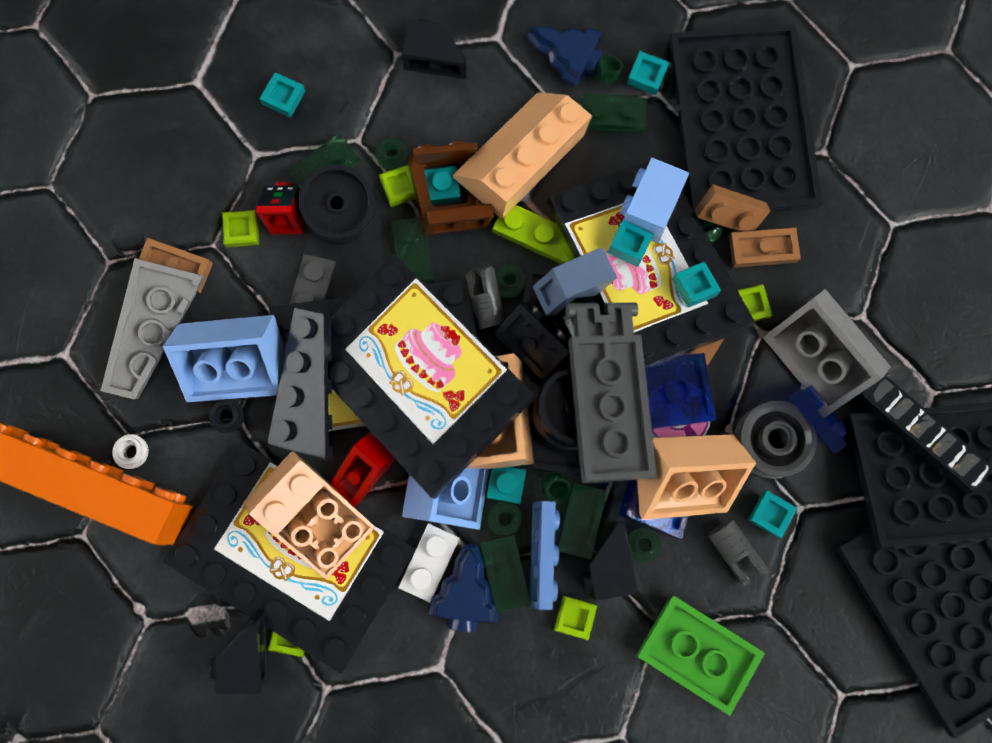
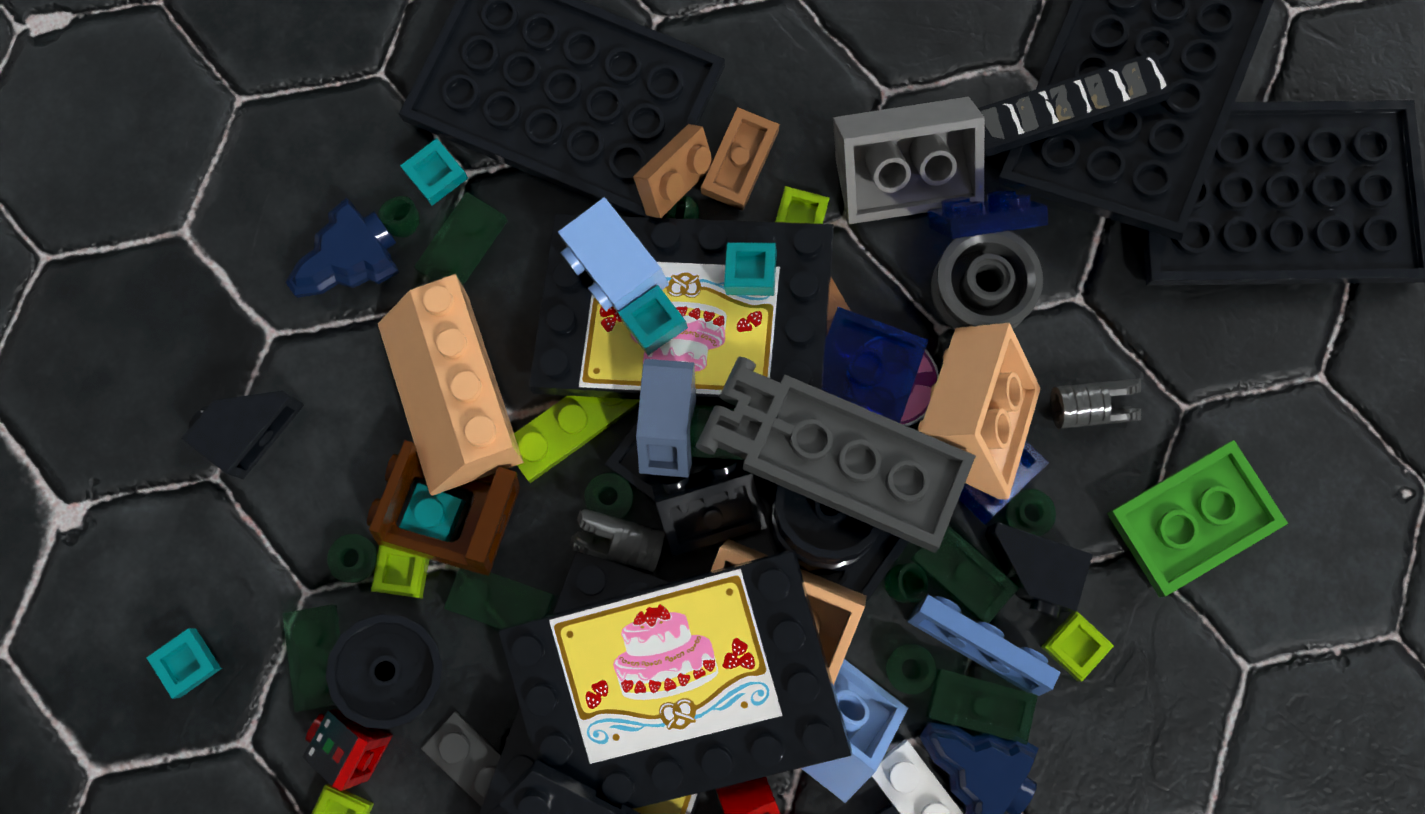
camera: 55 degrees left, 0 degrees up
(506, 484) = (872, 644): teal plate -> none
(772, 514) = (1072, 336): teal plate -> none

